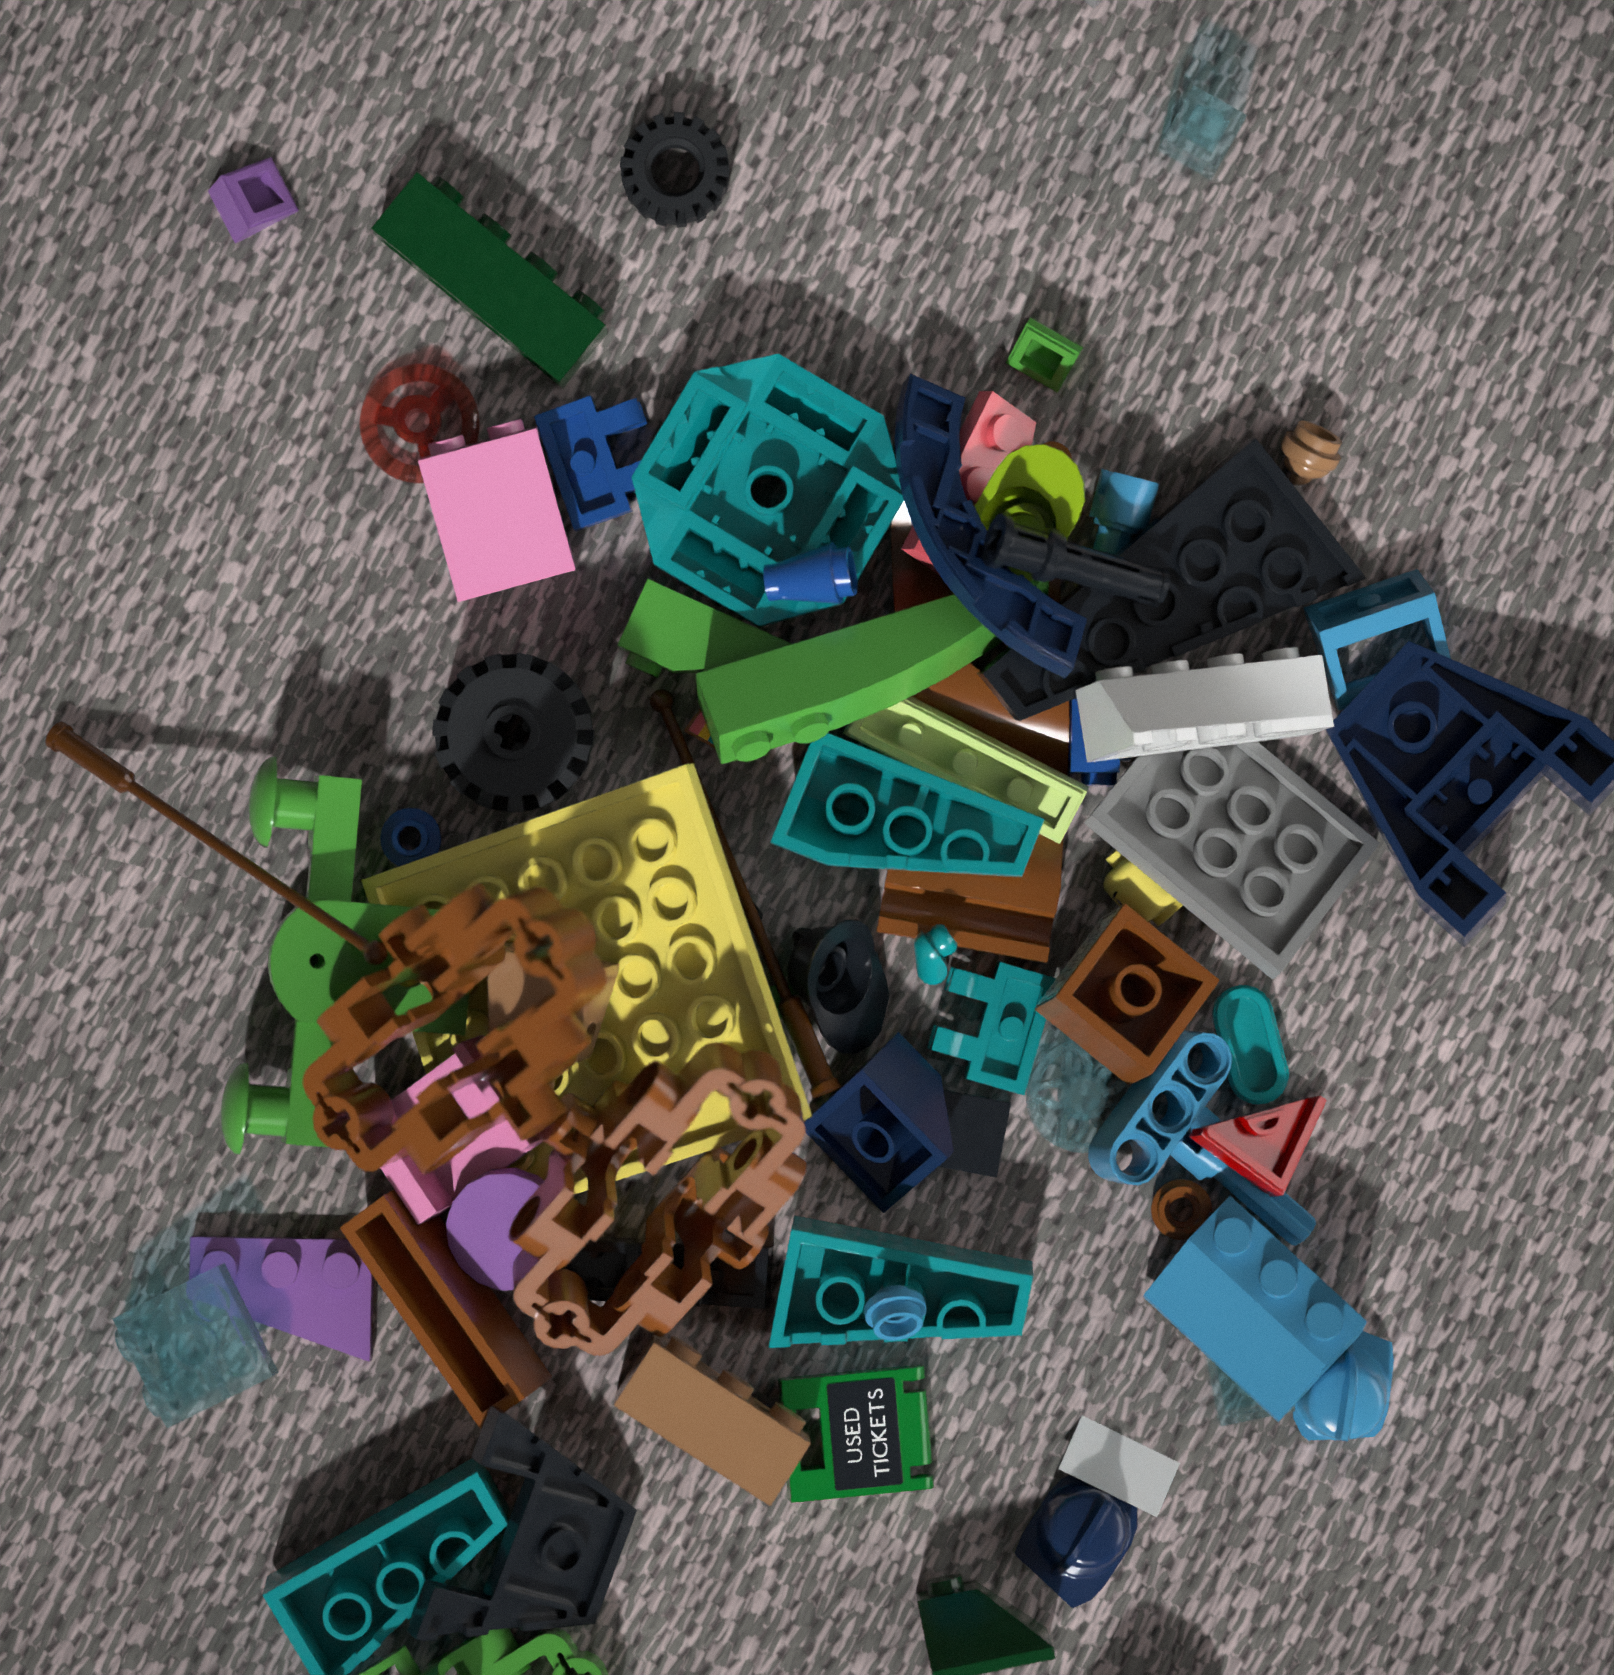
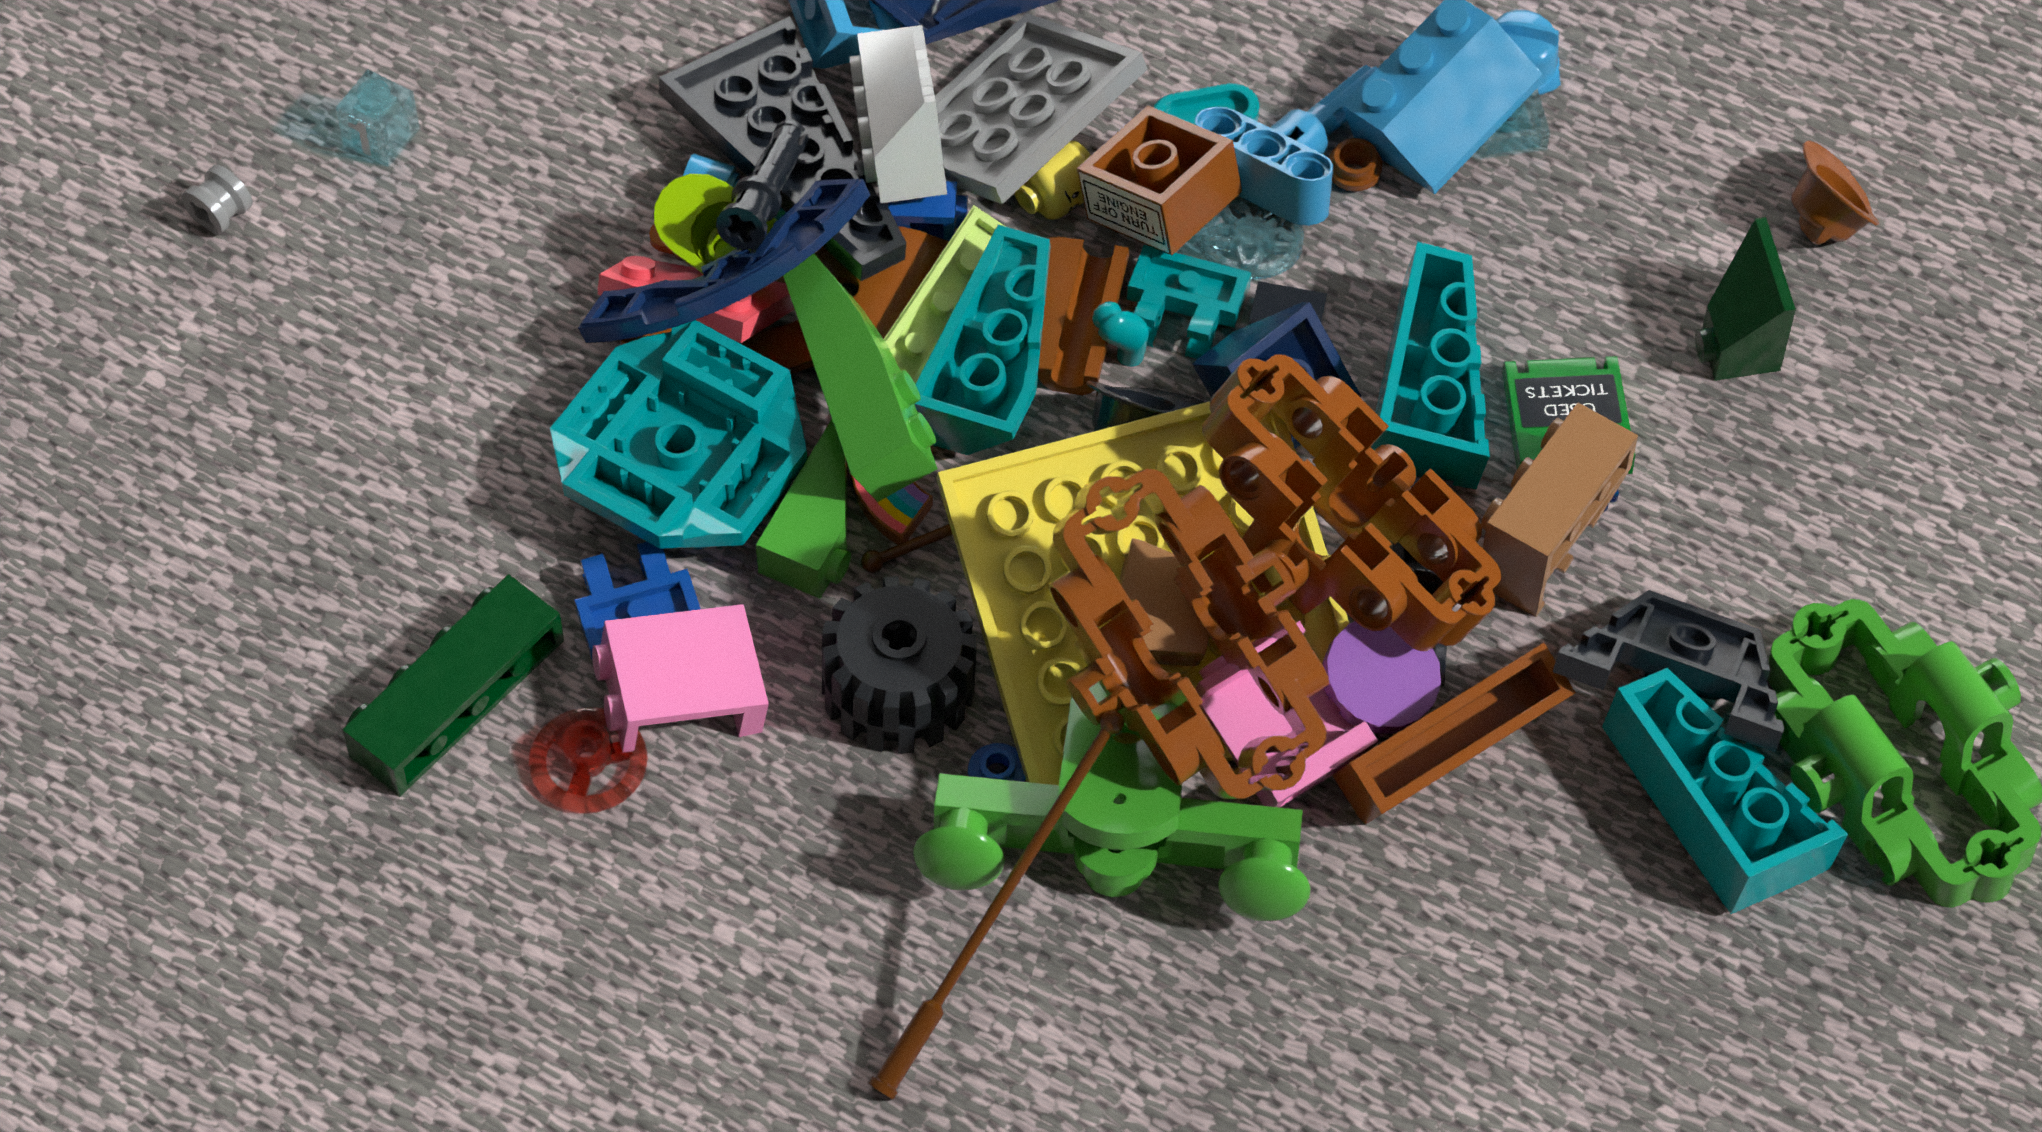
camera: 90 degrees left, 30 degrees down
(193, 1346) = (1503, 958): clear light blue plate -> none
(252, 199) = (351, 903): medium lavender slope -> none
(297, 1286) = (1439, 887): medium lavender wing -> none
(664, 135) = (356, 504): black tyre -> none
(813, 576) = (764, 377): blue cone -> none
(895, 1312) = (1453, 337): dark azure plate -> none
(1044, 354) = (565, 248): bright green slope -> none
(1077, 1539) = (1656, 251): dark blue piece -> none
(1119, 1466) = (1589, 218): white sticker -> none
(1264, 1143) = (1294, 88): tile -> none
(1310, 452) = (672, 51): medium nougat plate -> none

